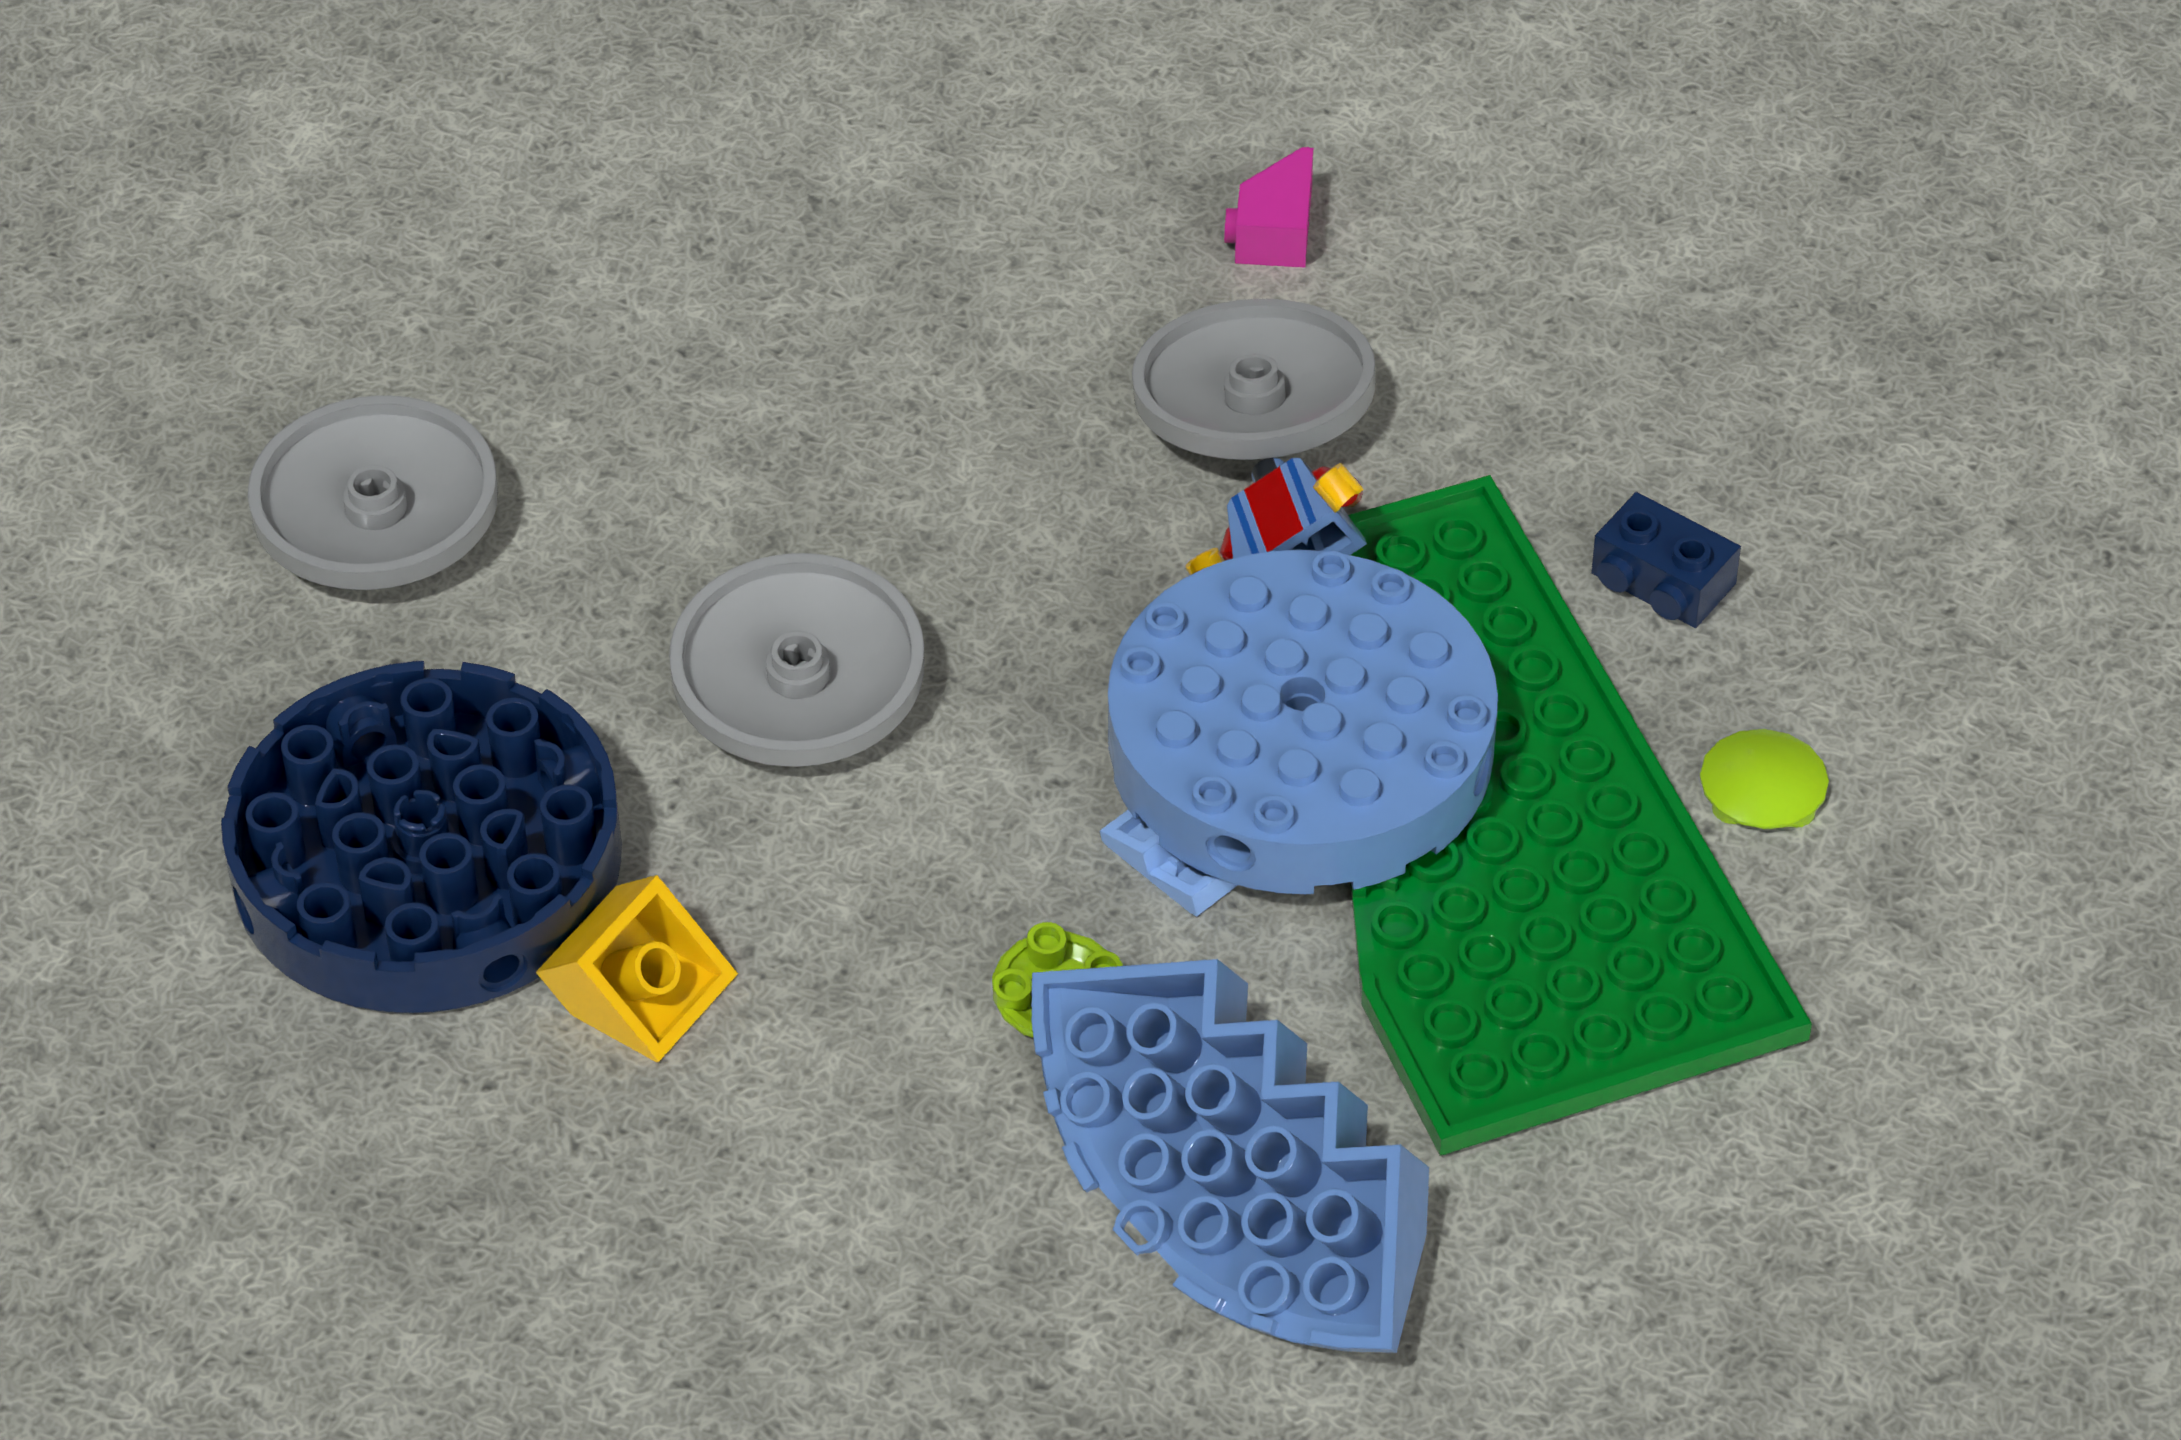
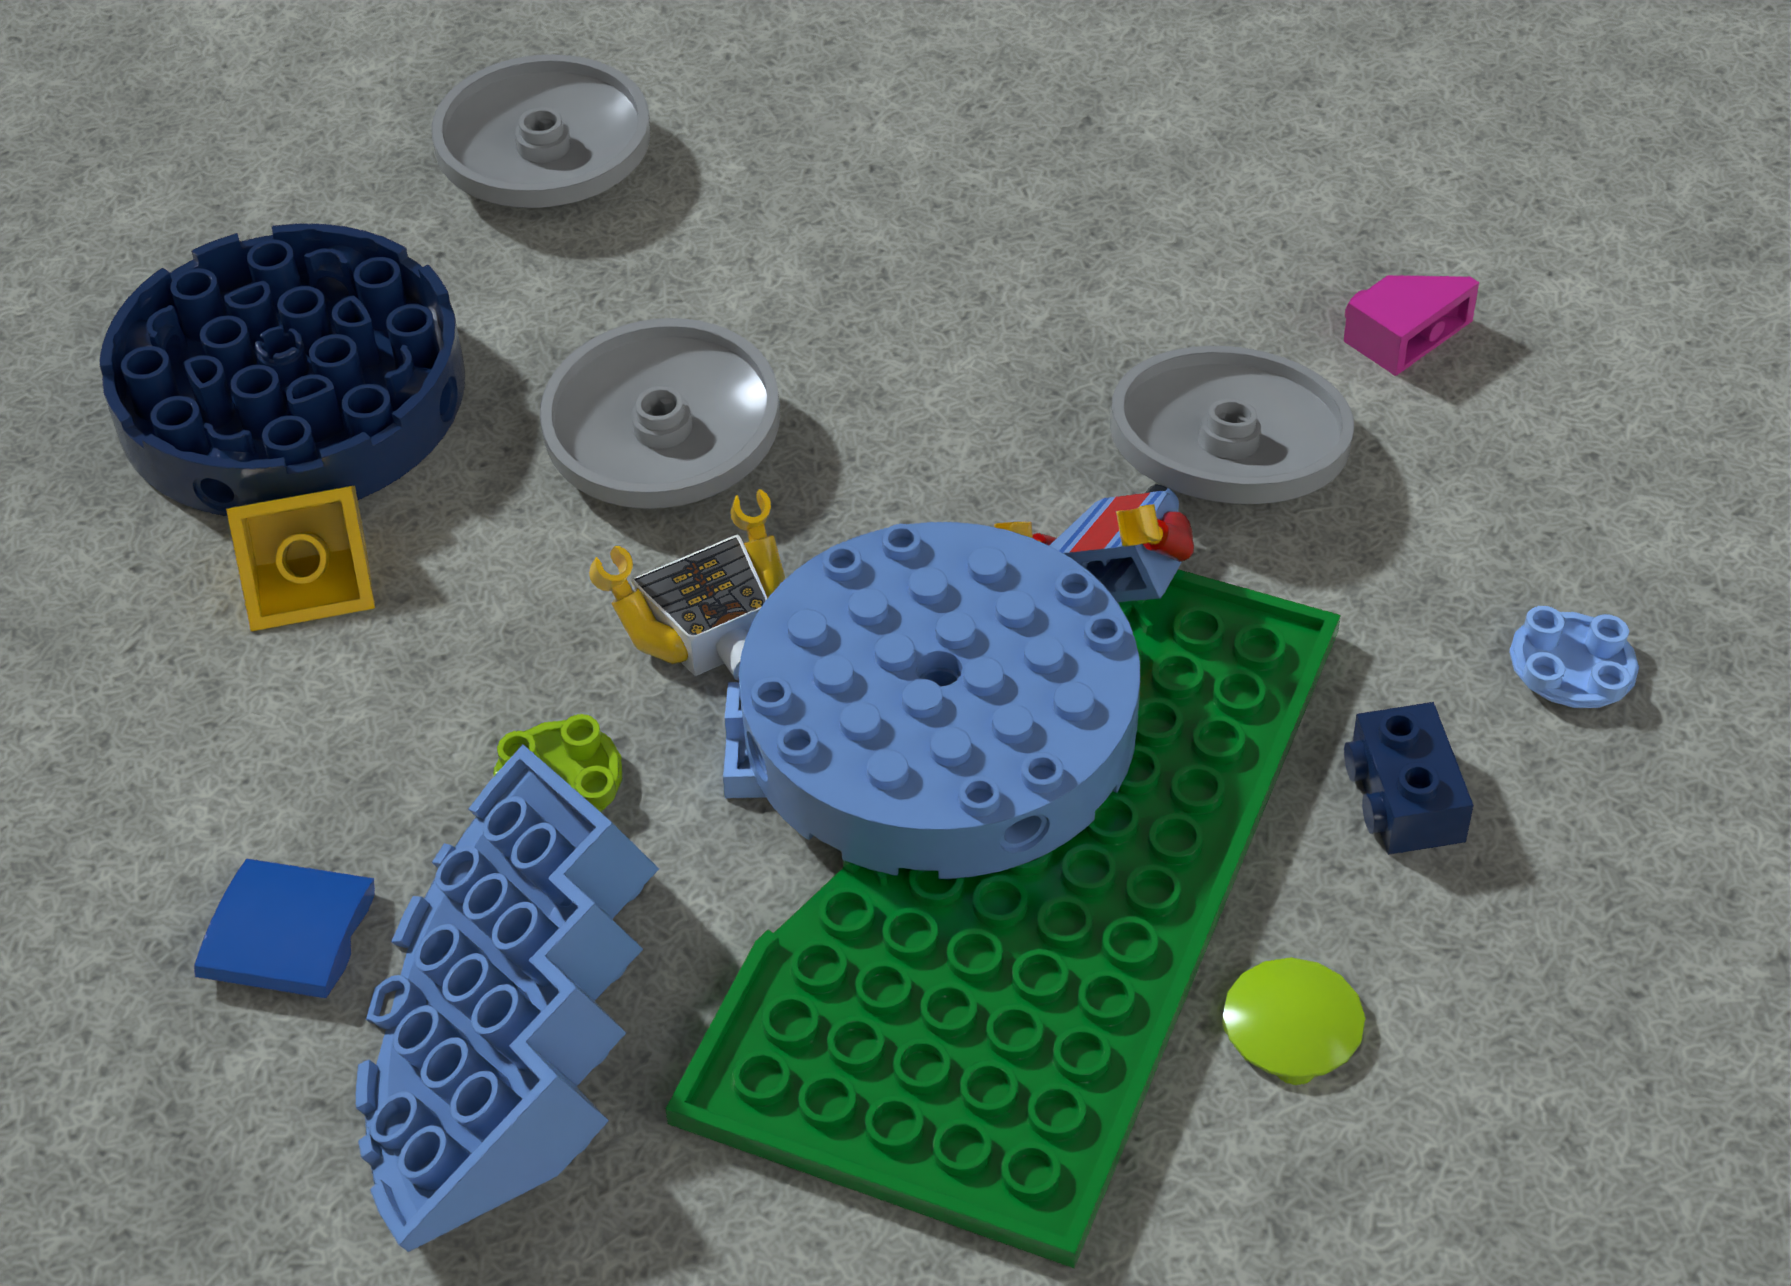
camera: 45 degrees right, 0 degrees up
(999, 1236) = (284, 928): none -> blue slope
(1022, 776) = (701, 603): none -> torso
(1672, 400) = (1574, 657): none -> light blue dish

